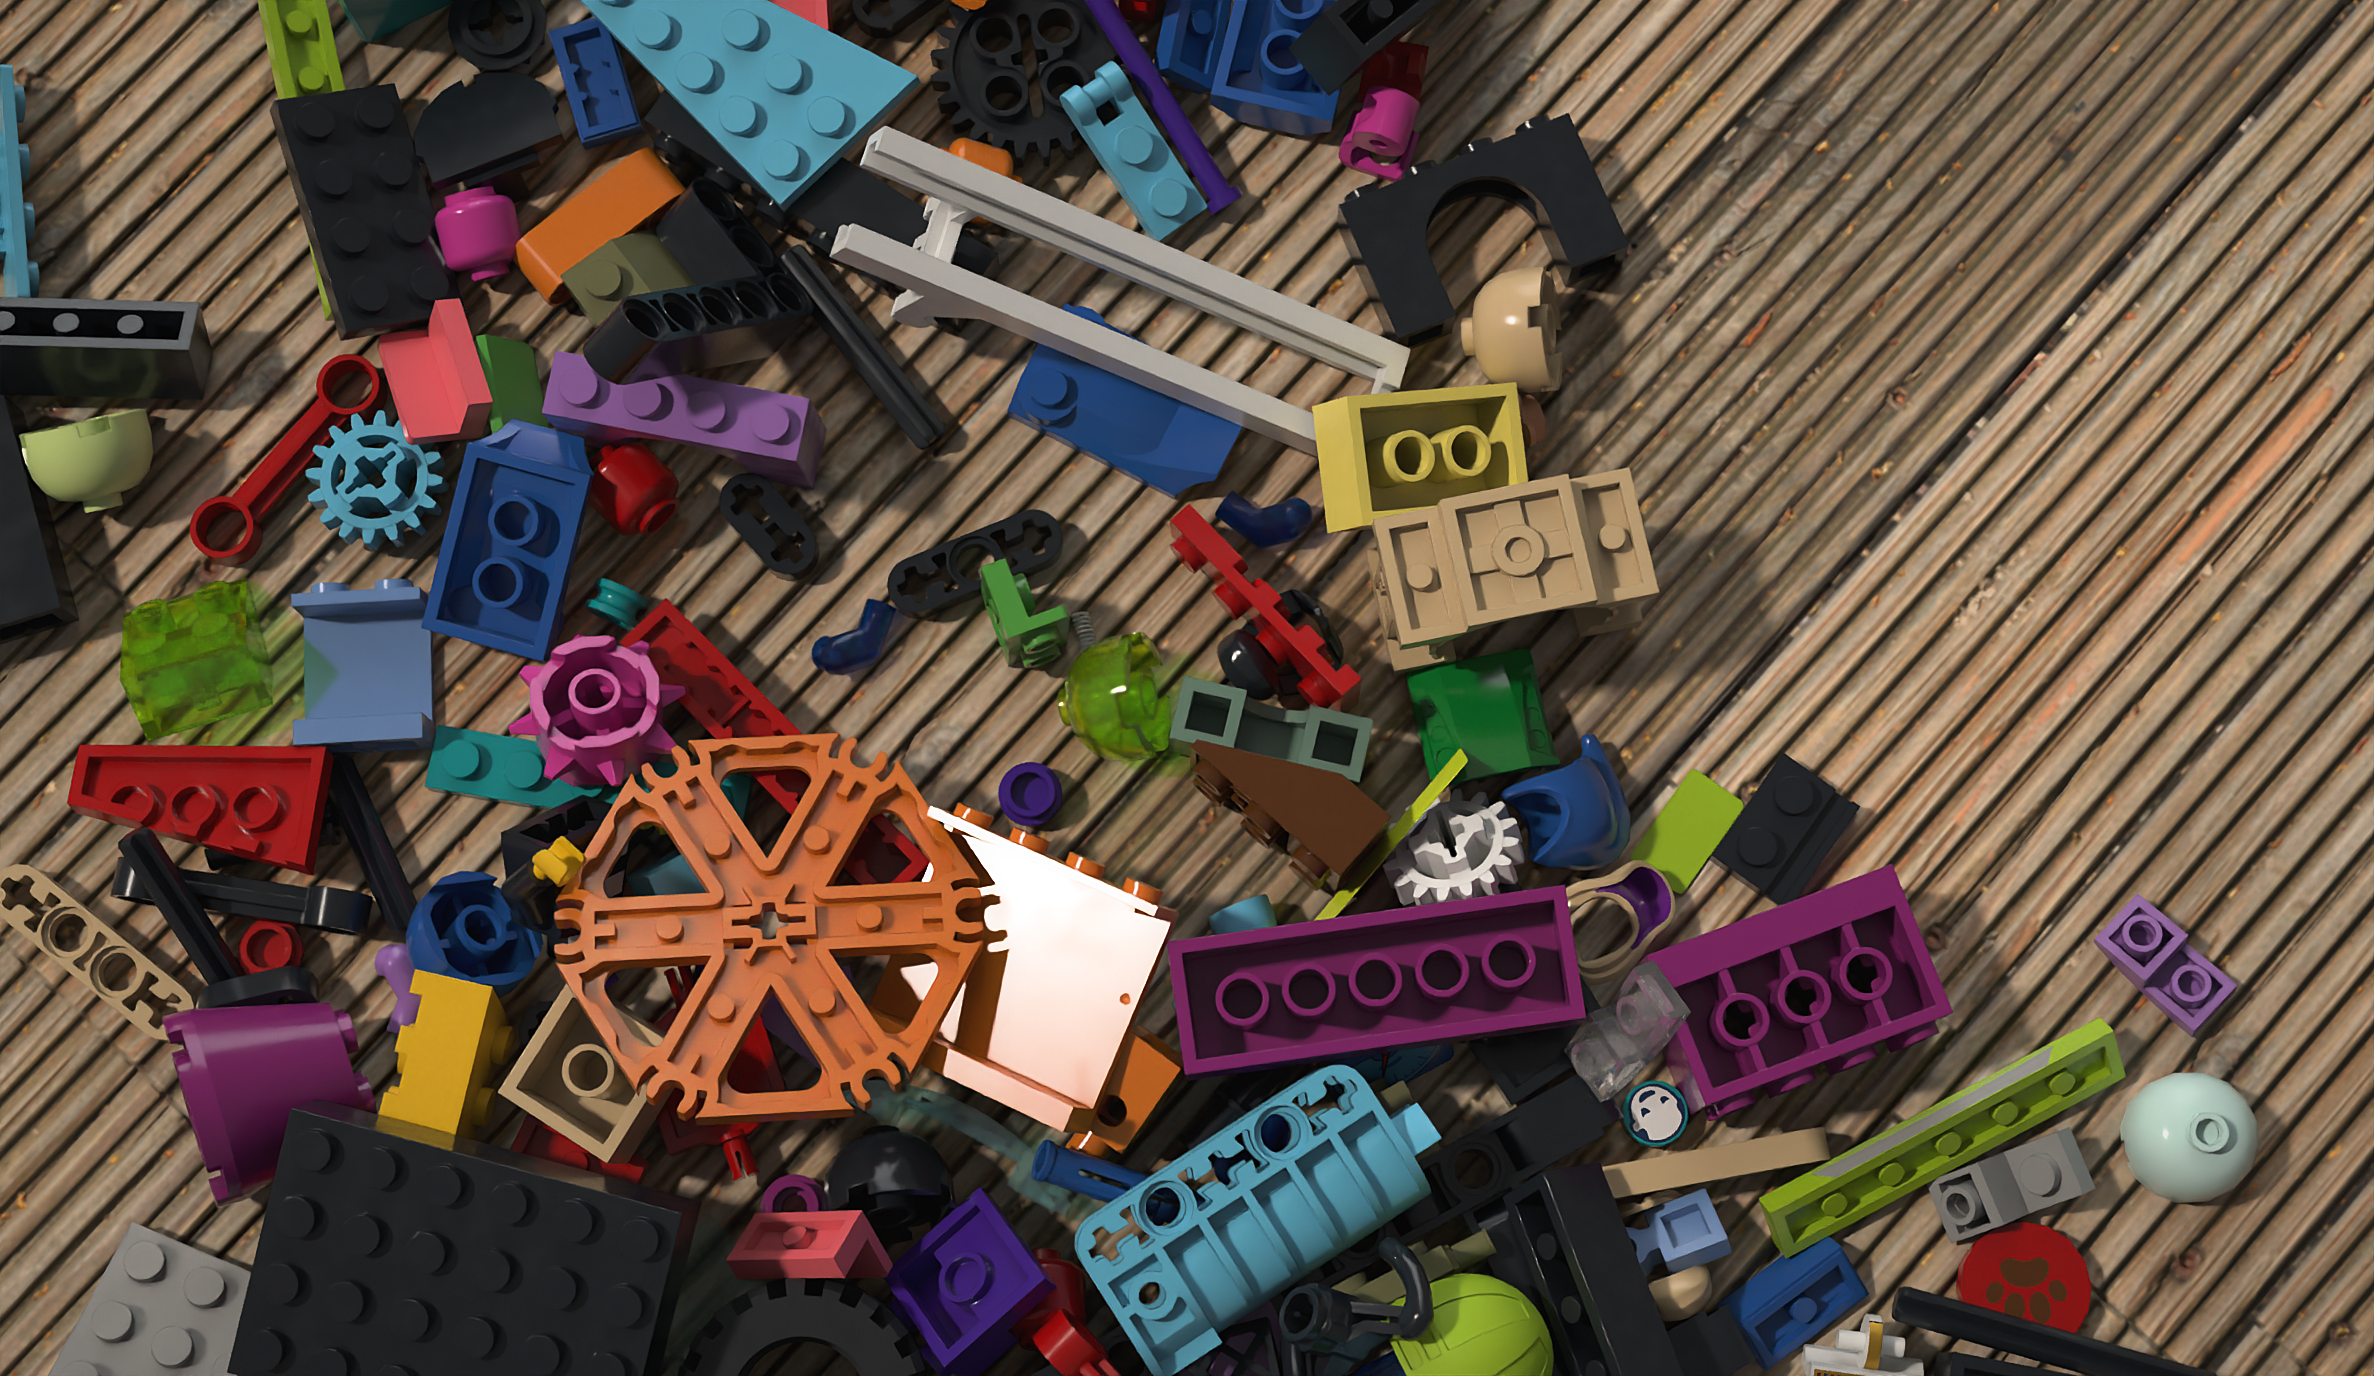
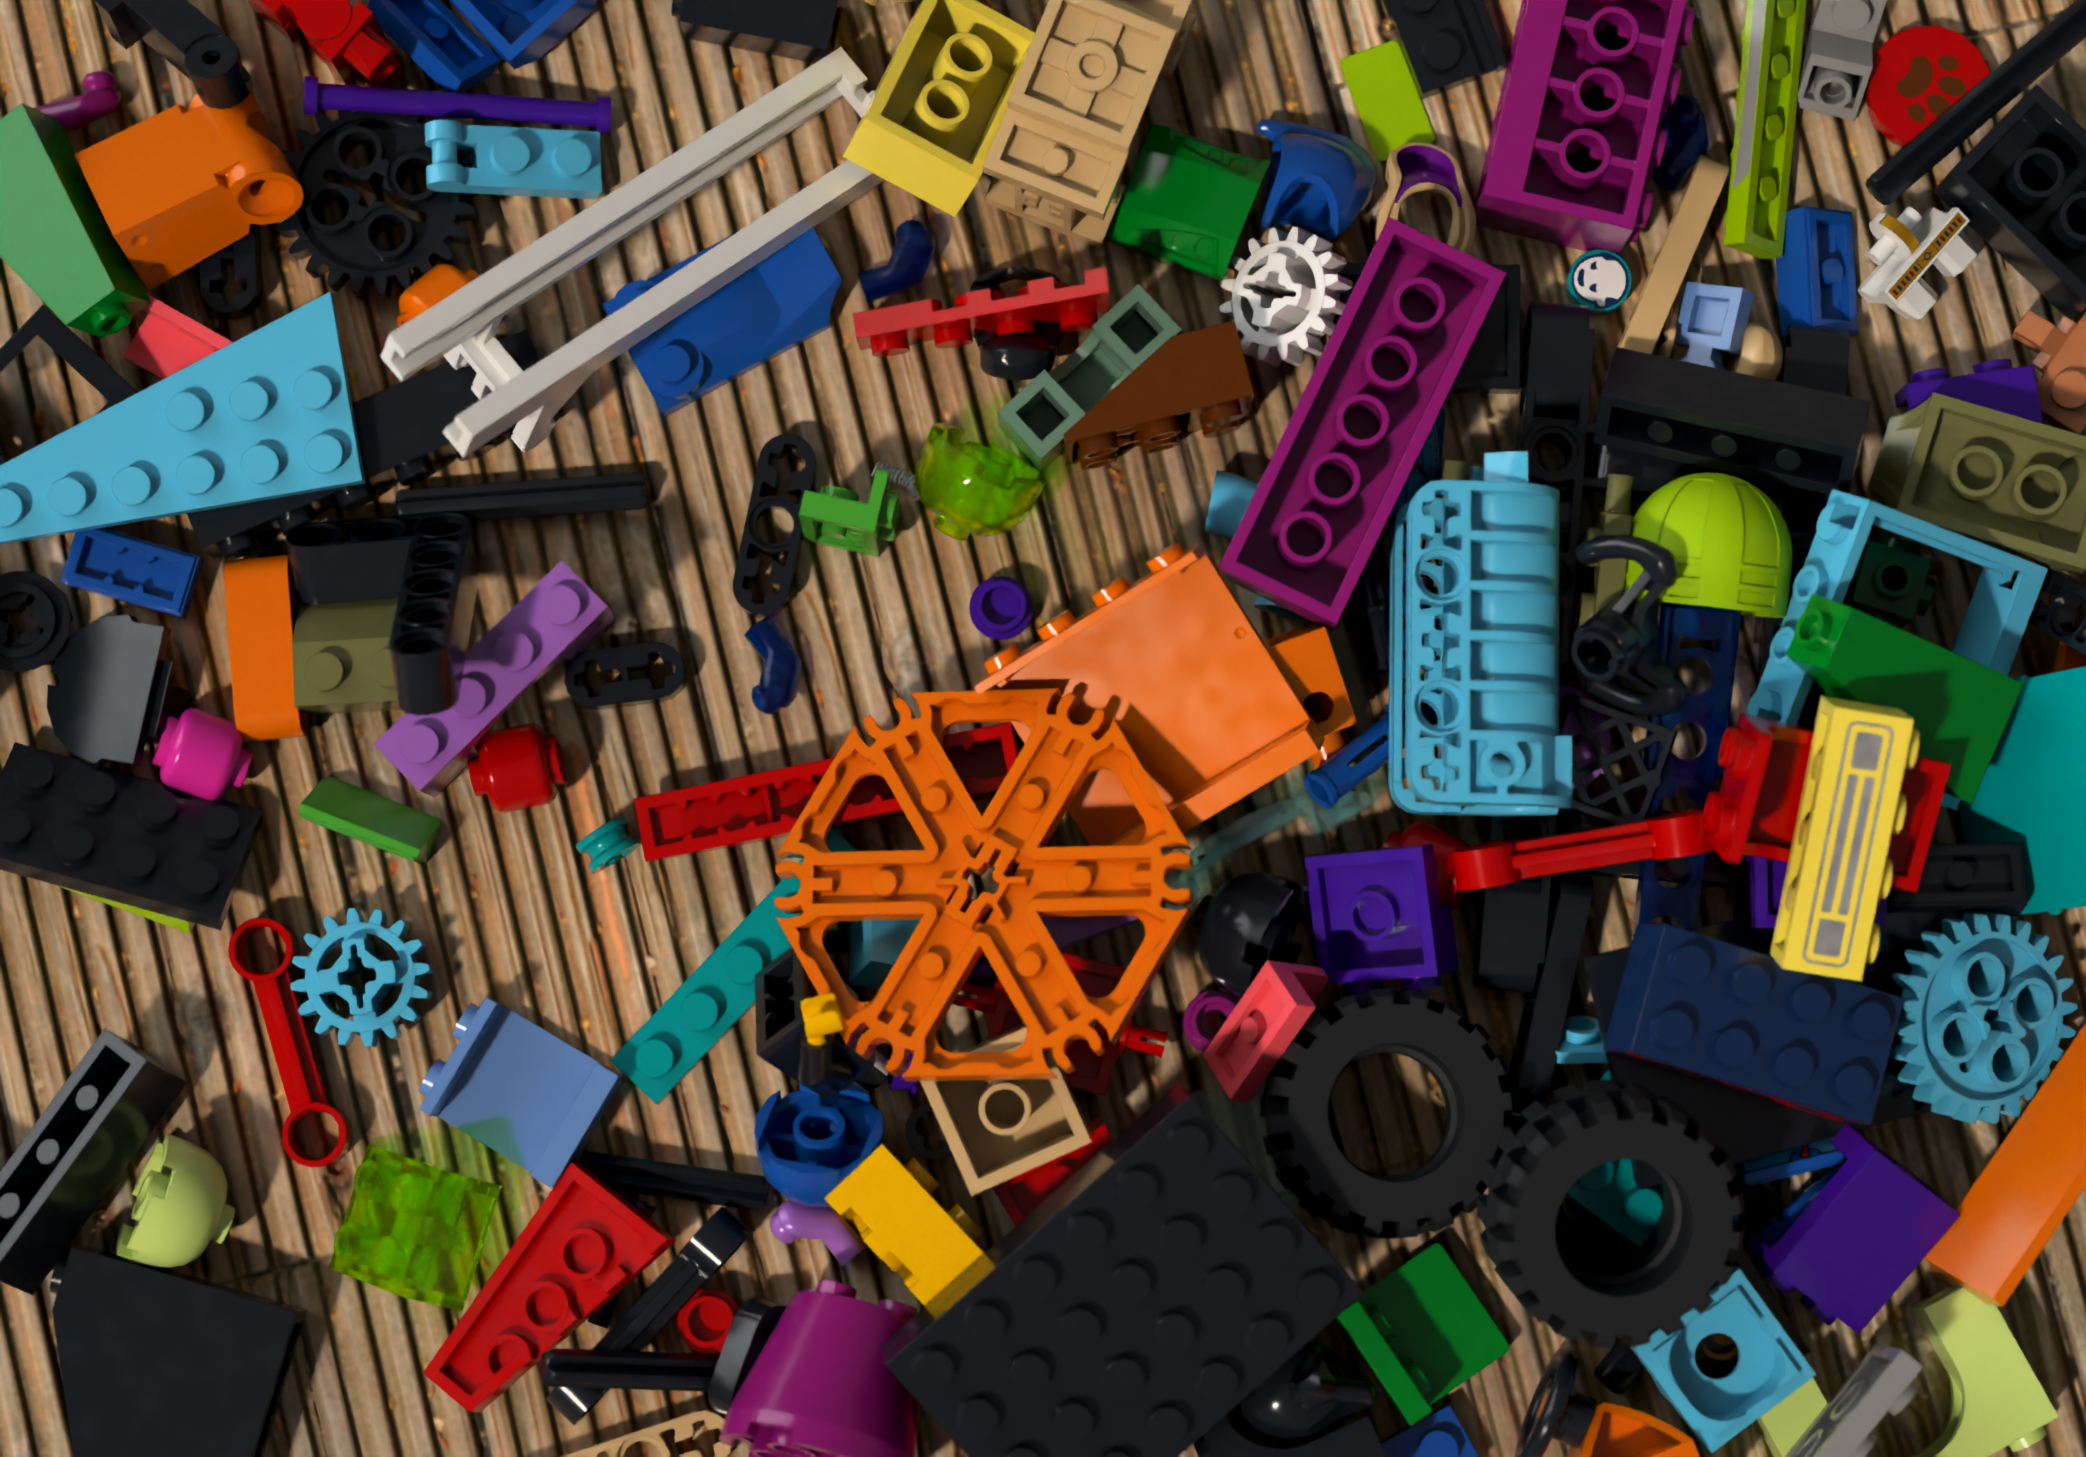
camera: 55 degrees left, 5 degrees up
(437, 378) = (308, 868): coral panel -> none
(511, 540) = (498, 892): blue slope -> none
(597, 711) = (729, 909): dark pink brick -> none
(1394, 836) = (1238, 311): neon yellow sticker -> none
(1628, 1033) = (1530, 252): clear slope -> none
(1829, 1107) = (1685, 142): none -> arm

